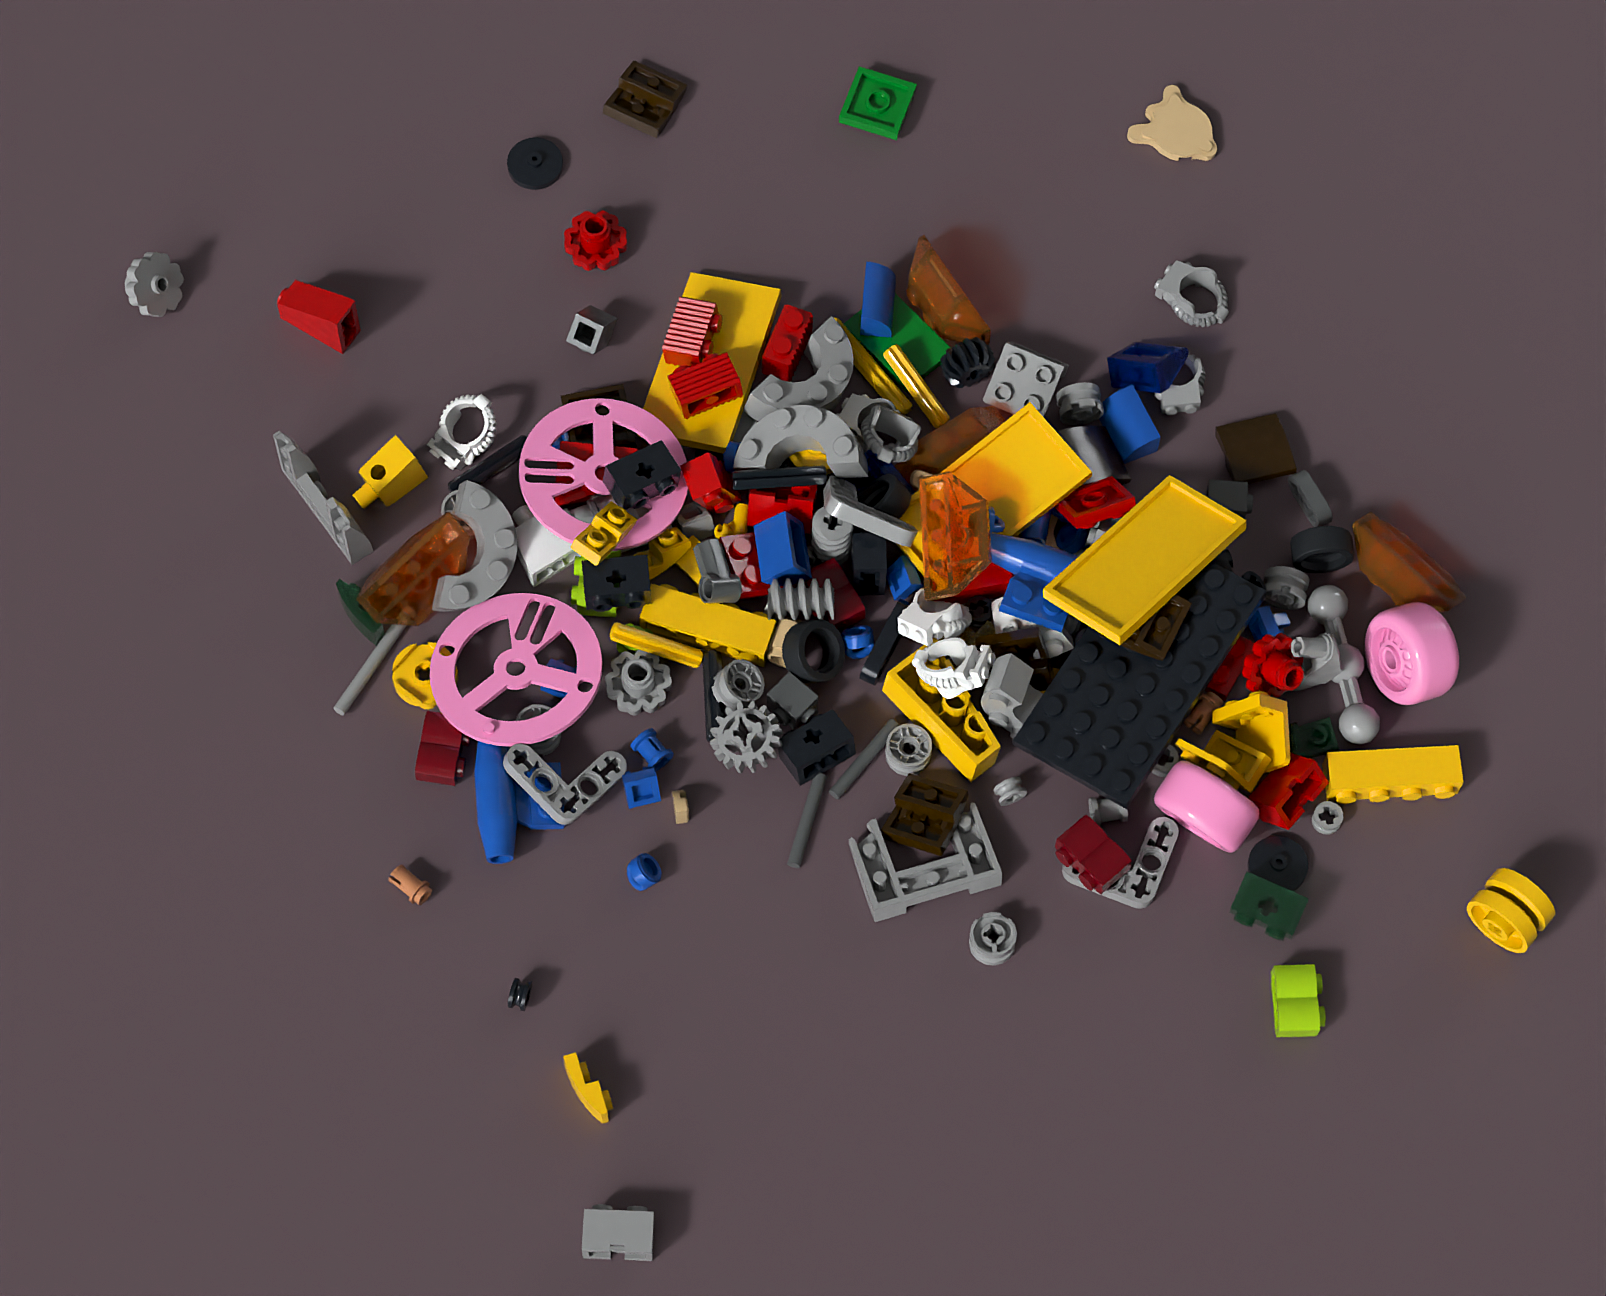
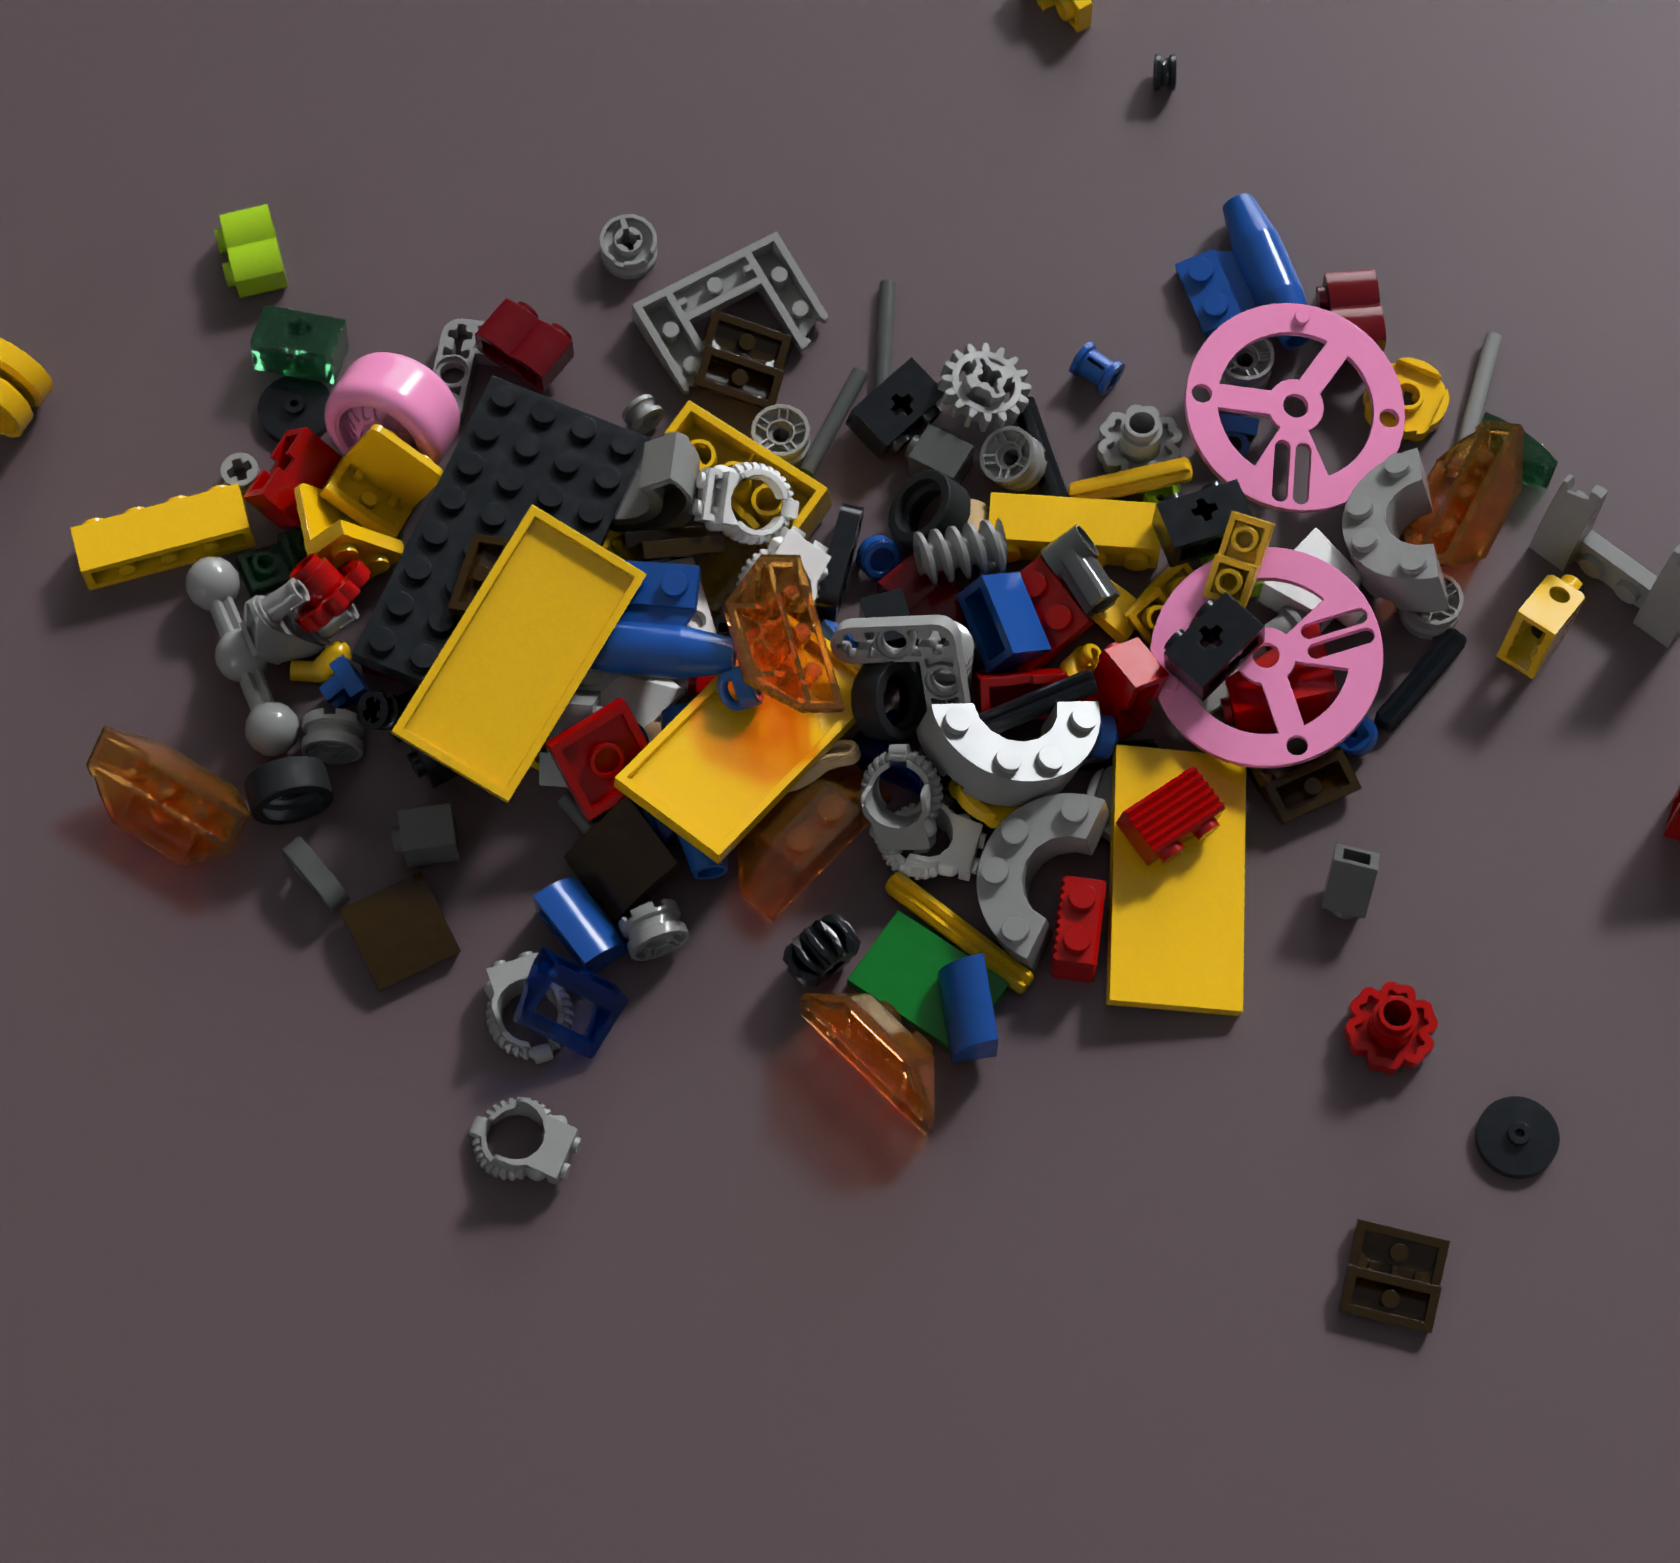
camera: 170 degrees right, 0 degrees up
(412, 886) = (1332, 161): nougat pin -> none
(458, 454) = (1480, 690): white piece -> none
(561, 792) = (1187, 283): light grey beam -> none
(641, 787) = (1096, 321): blue tile -> none
(643, 871) = (1062, 231): blue tile -> none
(680, 806) = (1043, 314): tan tile -> none
(691, 332) = (1212, 894): red brick -> none
(877, 103) = (1050, 1345): green plate -> none
(916, 386) = (885, 907): yellow axle -> none
(1024, 378) = (734, 961): light grey bracket -> none
(1176, 128) = (592, 1417): tan tile -> none
(1411, 653) = (151, 663): bright pink wheel -> none

